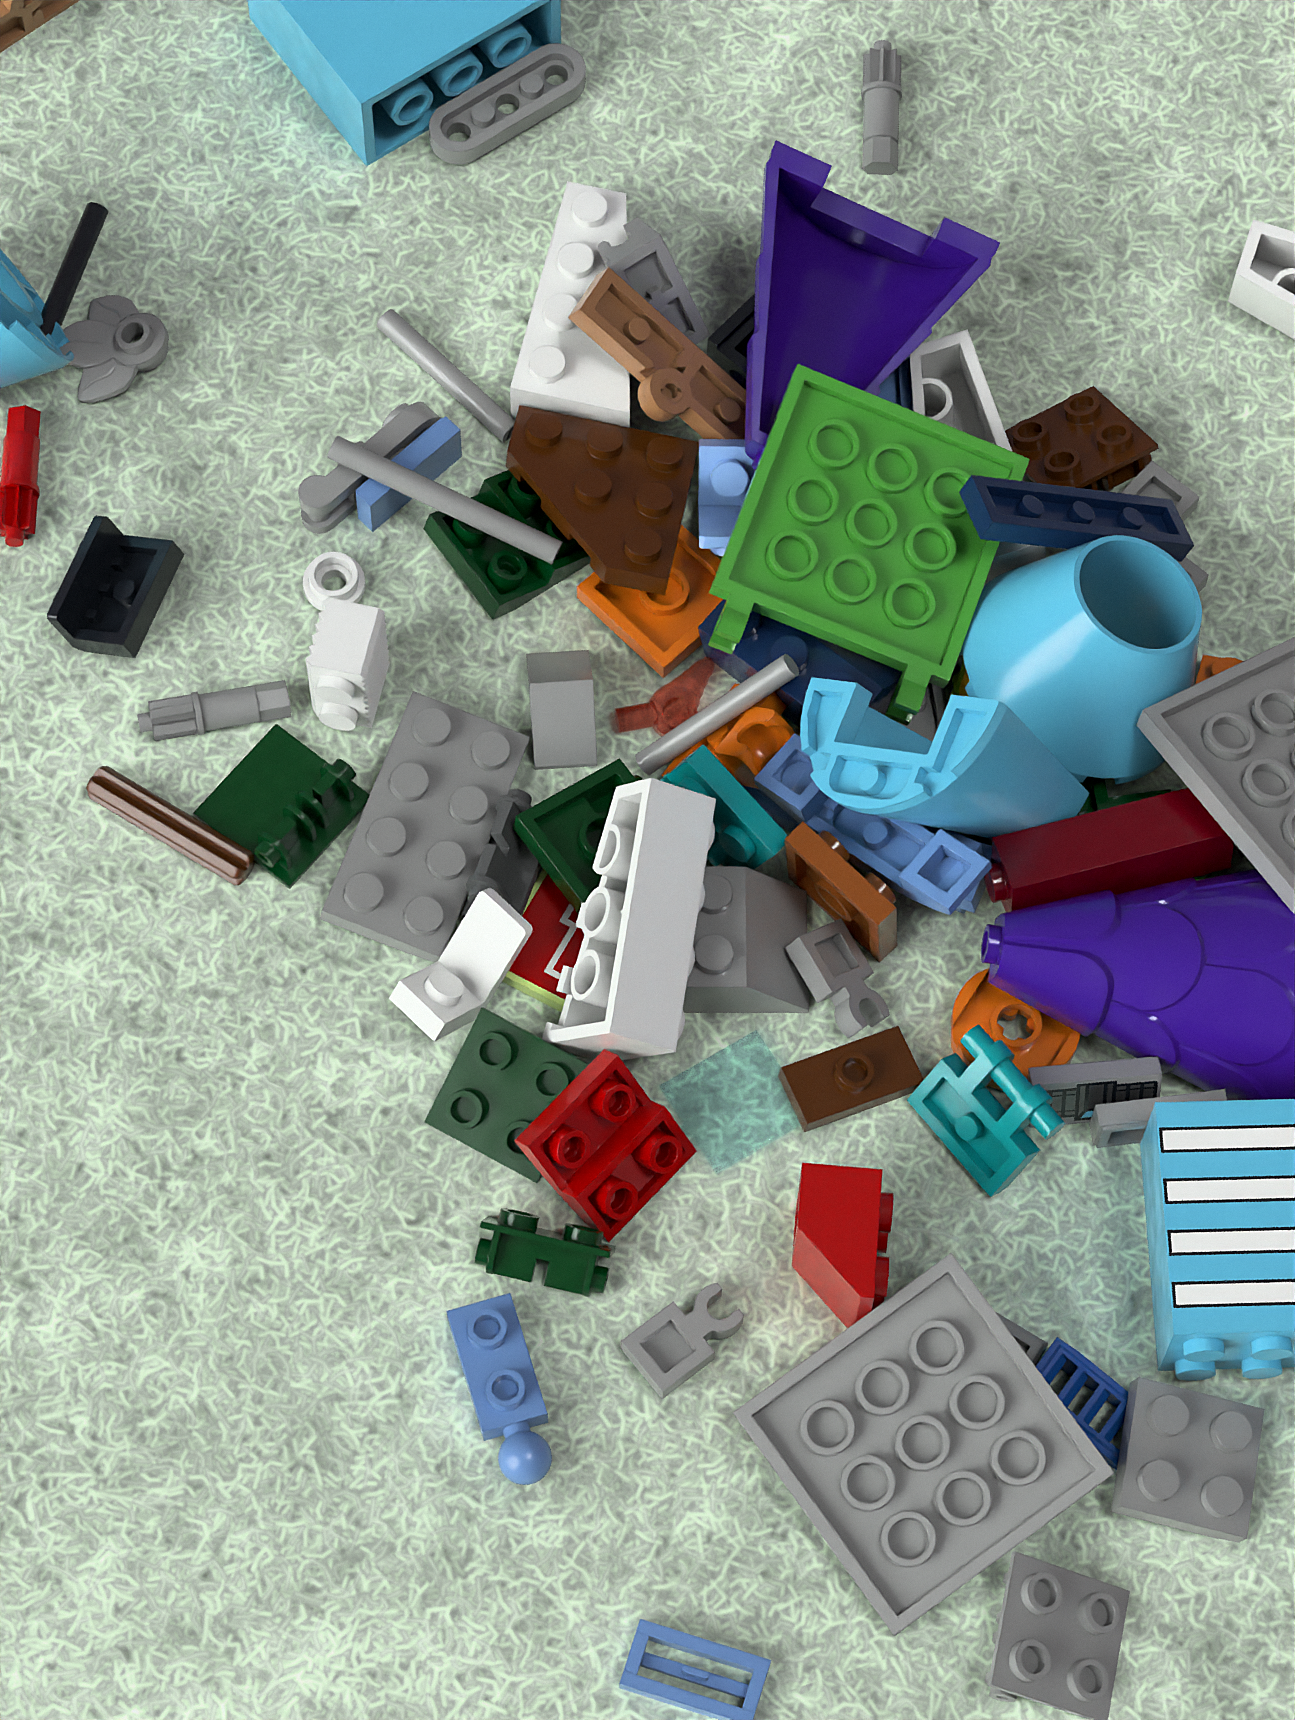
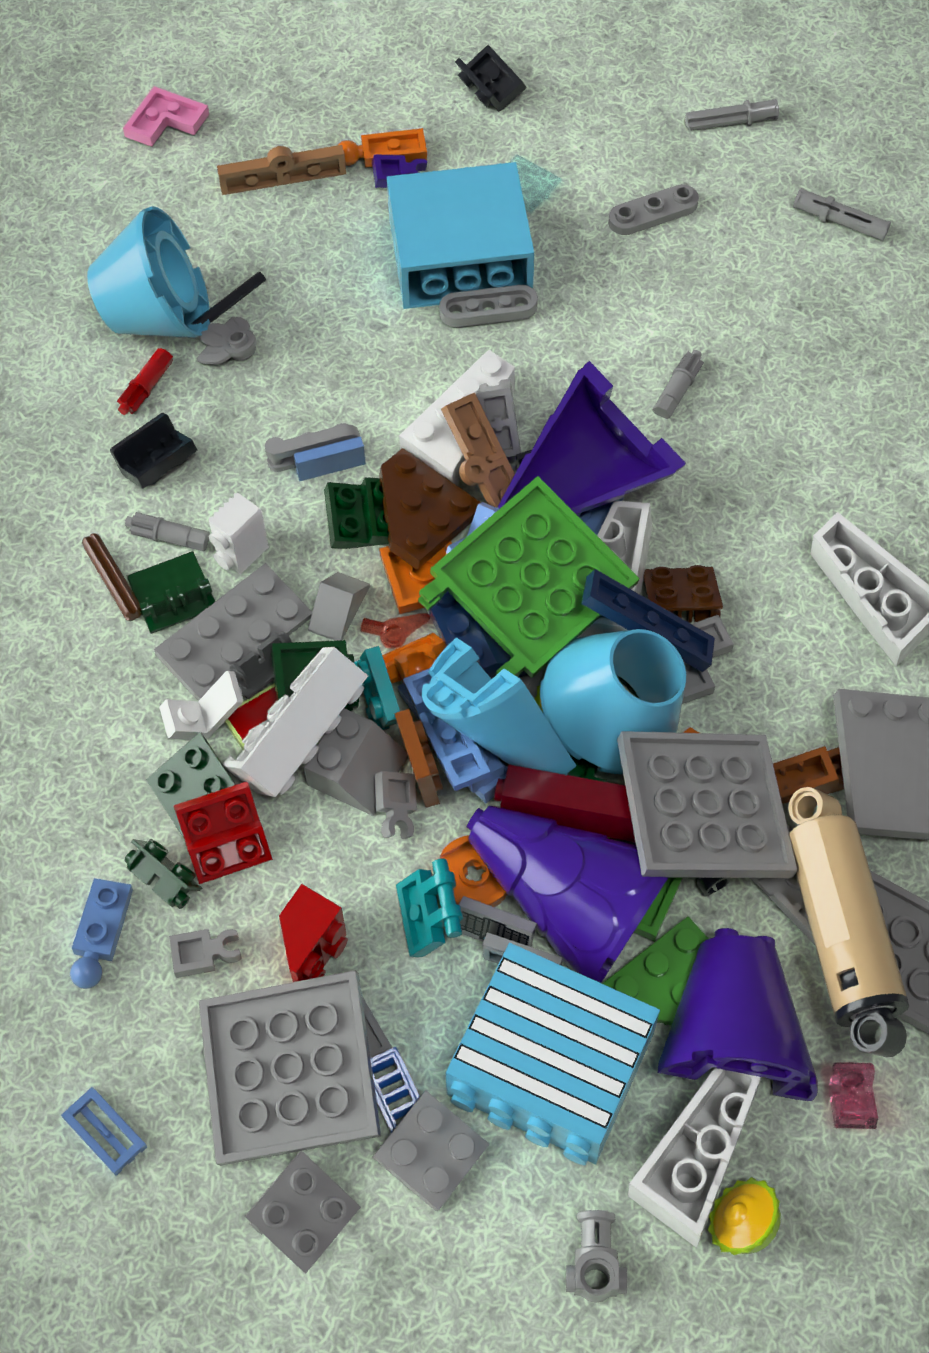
camera: 30 degrees right, 5 degrees down
(333, 565) = (260, 487): white plate -> none
(444, 499) = (335, 476): light grey bar -> none
(446, 374) = (379, 417): light grey piece -> none
(717, 714) = (413, 638): light grey bar -> none
(732, 1102) = (308, 844): clear light blue piece -> none
(850, 1078) = (372, 859): reddish brown plate -> none

